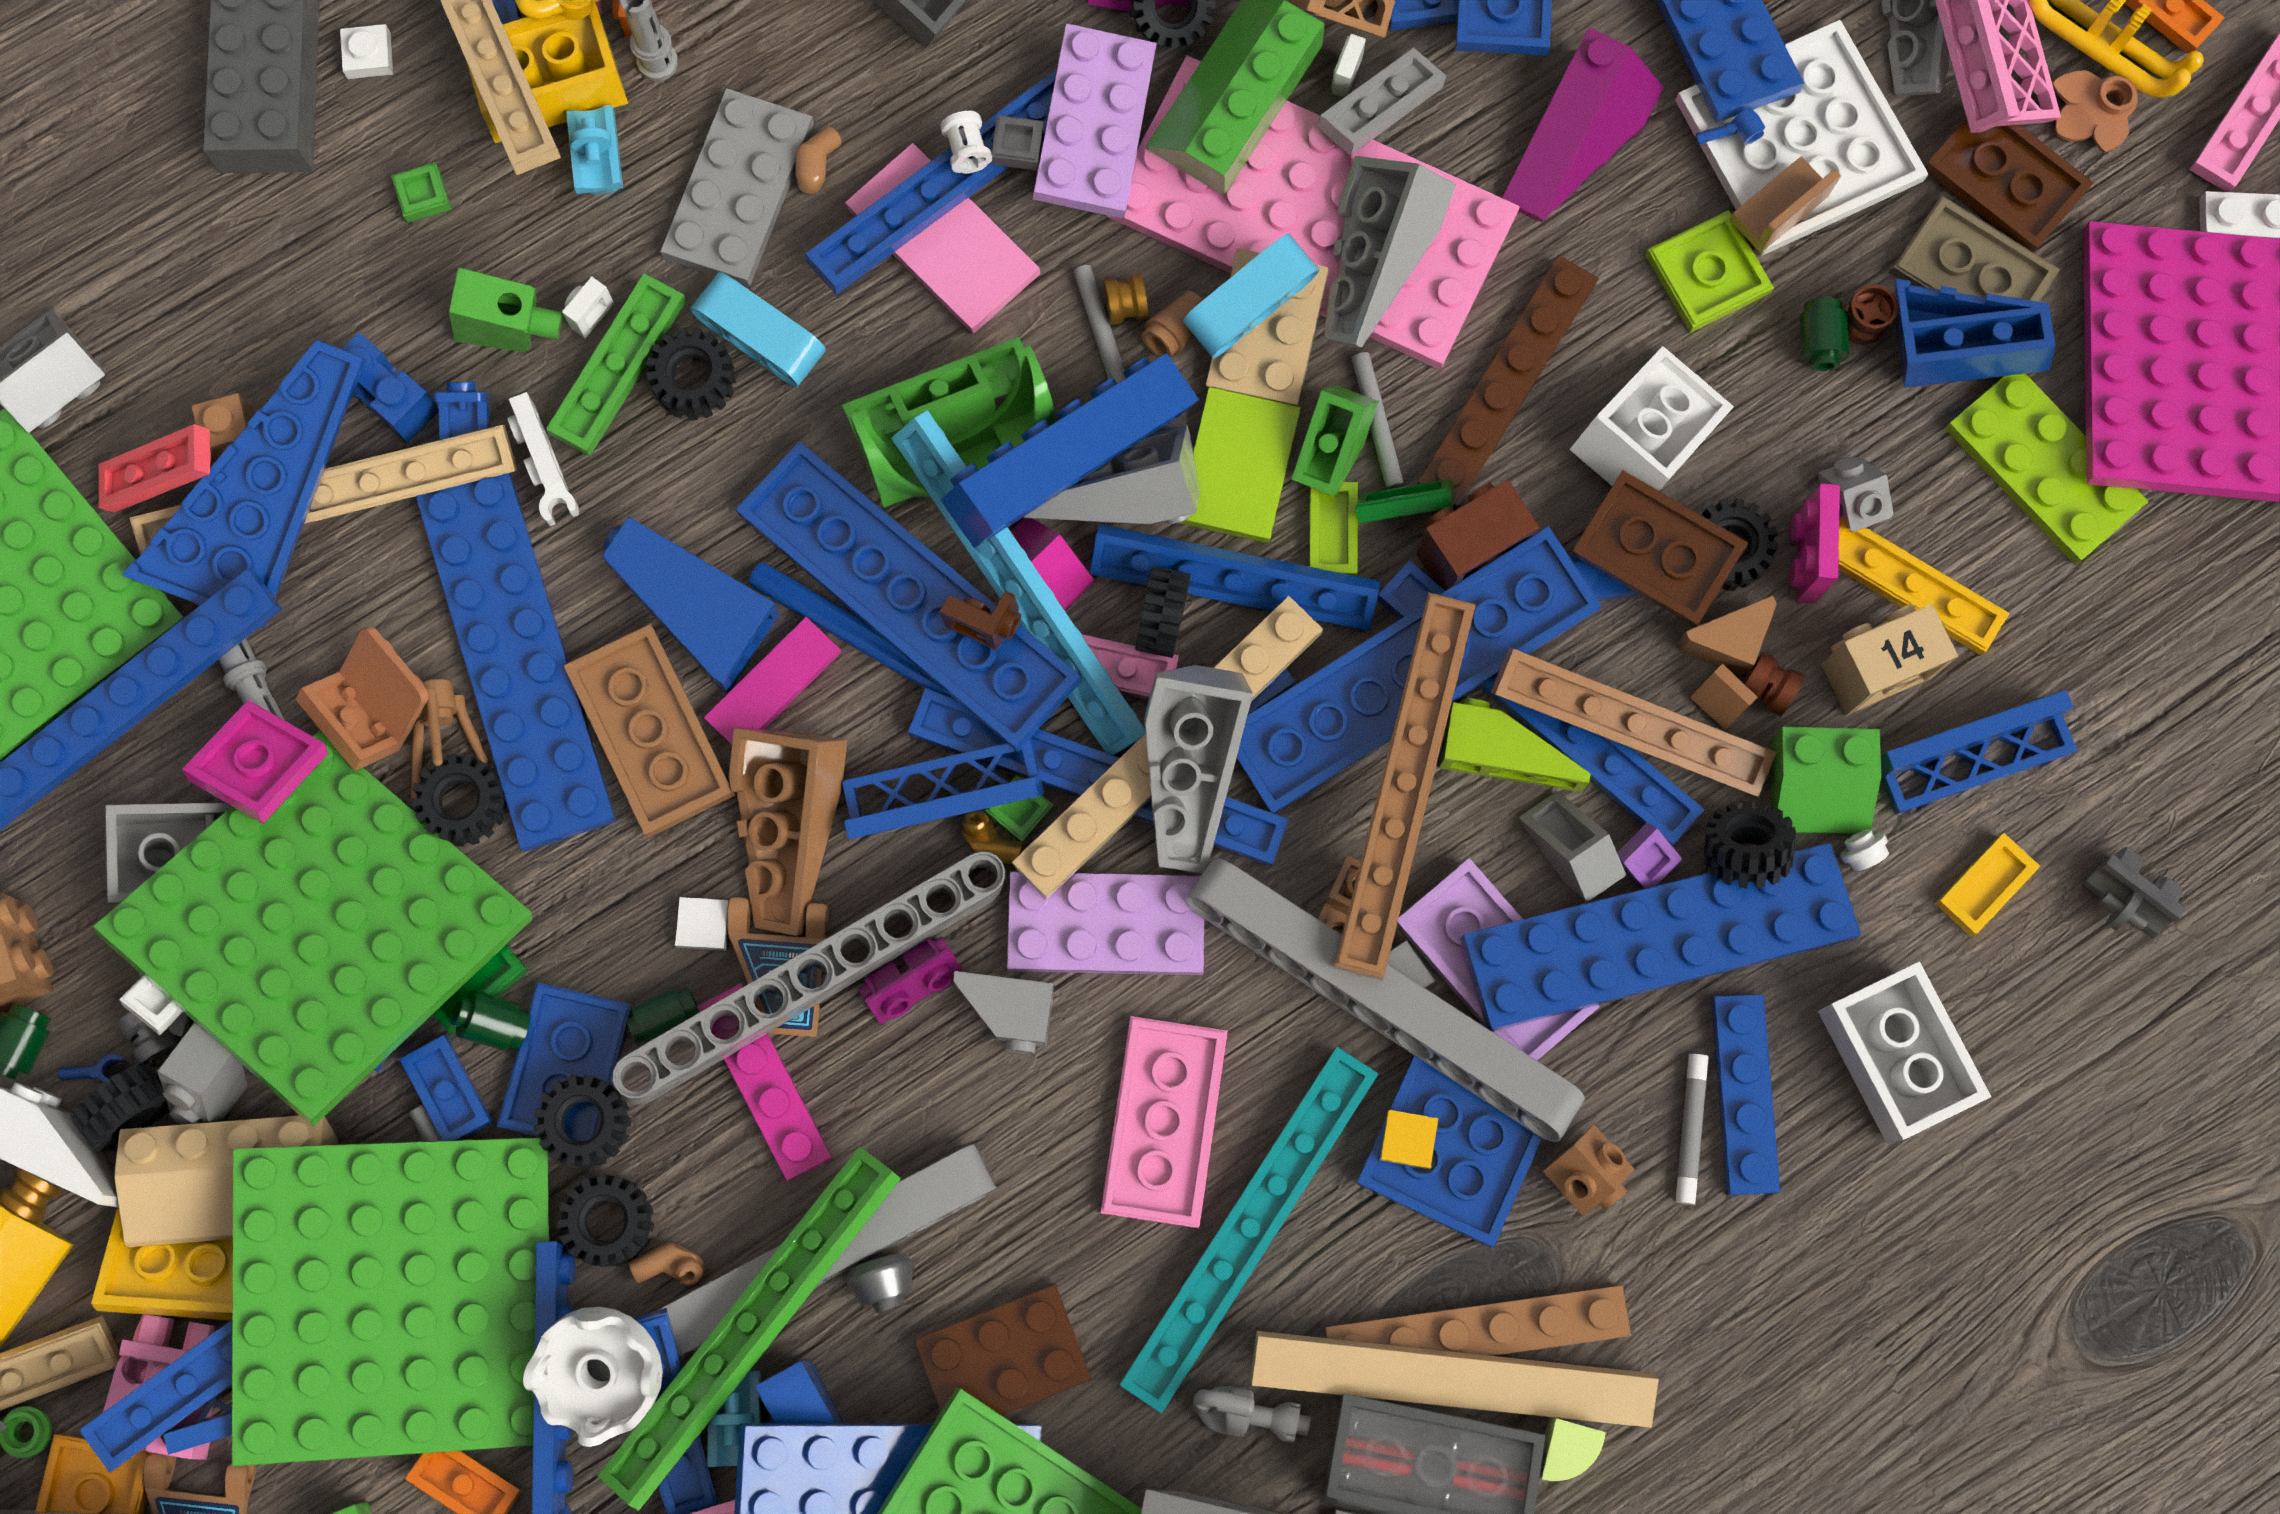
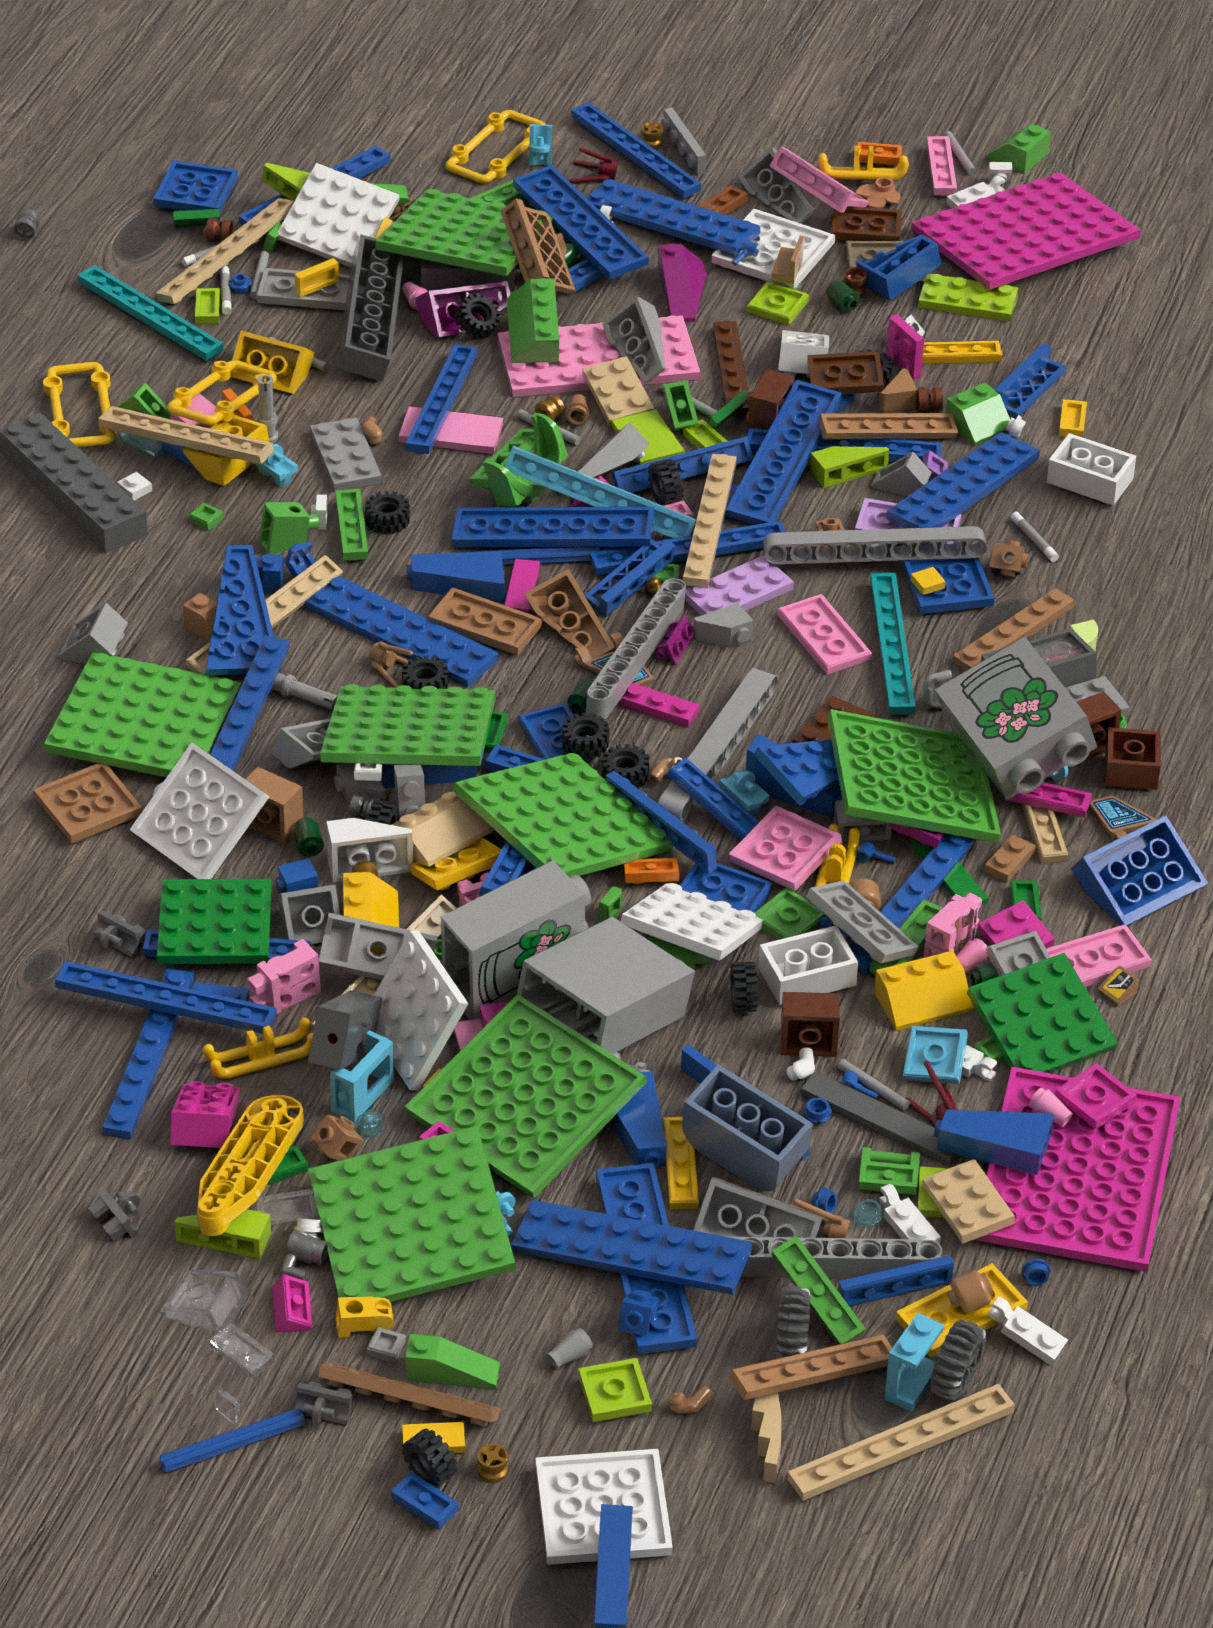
camera: 35 degrees left, 35 degrees down
(154, 468) = (185, 633): coral plate -> none
(255, 761) = (330, 690): dark pink plate -> none
(368, 703) = (356, 656): nougat bracket -> none
(490, 1020) = (512, 729): dark green brick -> none
(542, 464) = (351, 562): white plate -> none
(573, 1396) = (681, 764): white plate -> none
(702, 924) = (569, 668): white tile -> none
(748, 1329) = (724, 746): bright green plate -> none
(758, 329) = (414, 485): medium azure beam -> none
(882, 1282) = (760, 723): flat silver cone -> none
(971, 124) = (438, 382): white bush -> none
(975, 622) = (596, 506): reddish brown bracket -> none
(1017, 142) = (457, 378): flat silver tile -> none
(1068, 450) = (579, 442): blue brick -> none
(1094, 121) = (482, 360): lavender plate -> none
(1191, 752) = (725, 494): light grey wedge -> none
(1251, 295) = (605, 372): medium azure beam -> none
(1348, 65) = (568, 305): white tile -> none
(1381, 101) = (594, 307): light grey plate -> none
(1404, 787) = (819, 474): medium nougat tile -> none
(1454, 1379) = (967, 655): tan tile -> none
(1723, 697) = (915, 405): medium nougat tile -> none
(1745, 1095) = (1044, 518): blue plate -> none
(1749, 863) = (970, 440): black tyre -> none
(1888, 658) = (966, 363): tan brick -> none
(2133, 897) = (1130, 392): flat silver hips -> none

